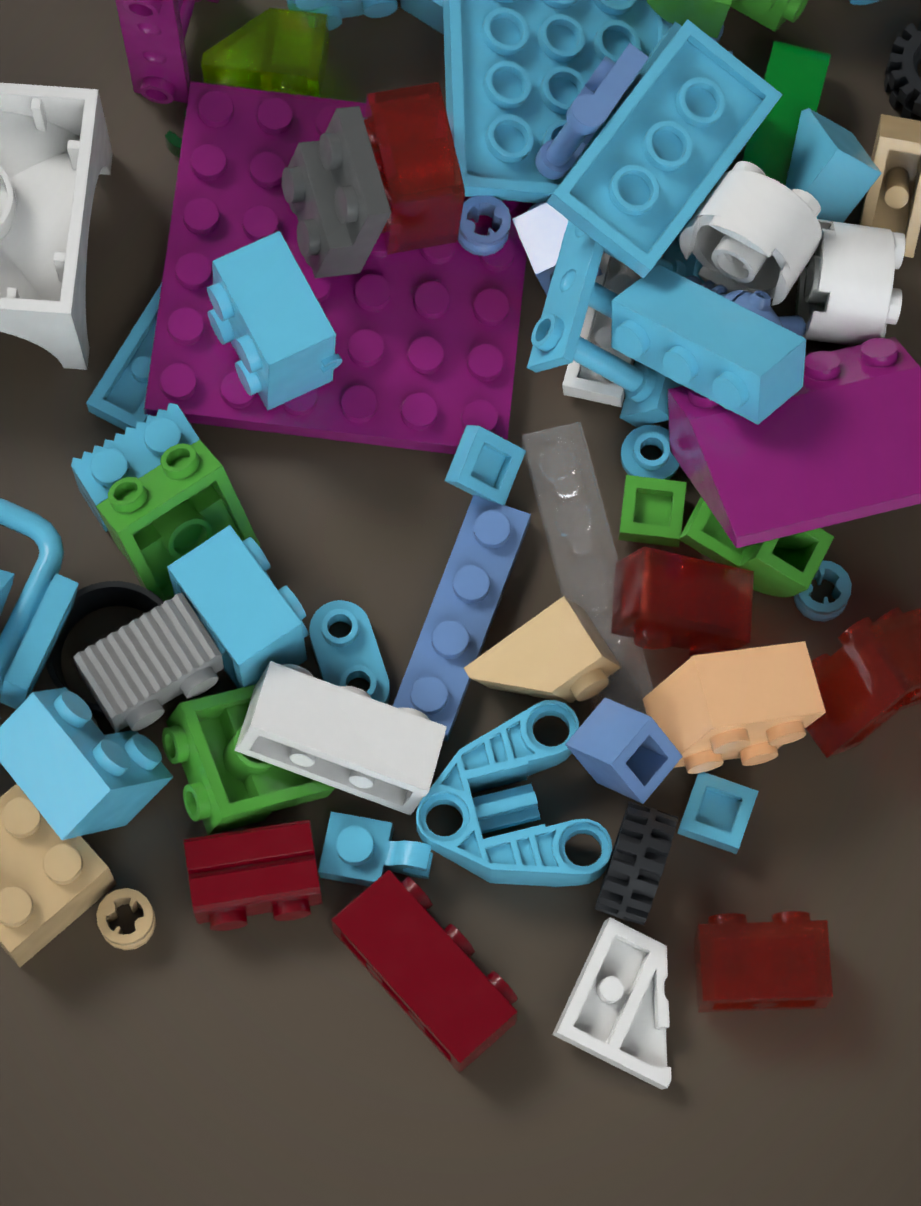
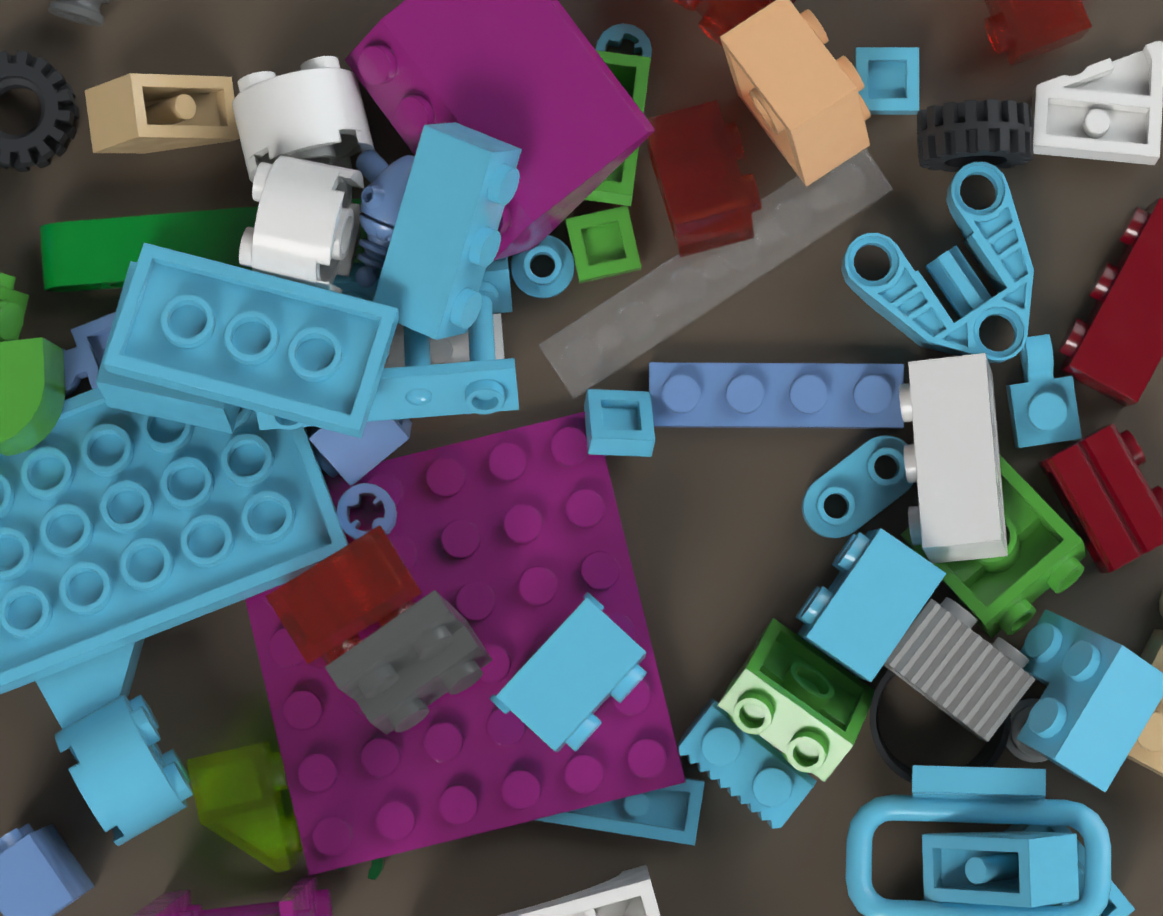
camera: 110 degrees left, 15 degrees up
(549, 657) = (805, 284): tan slope -> none
(589, 112) = (224, 431): medium blue plate -> none
(624, 750) = (881, 180): medium blue brick -> none
(830, 166) = (186, 183): medium azure slope -> none

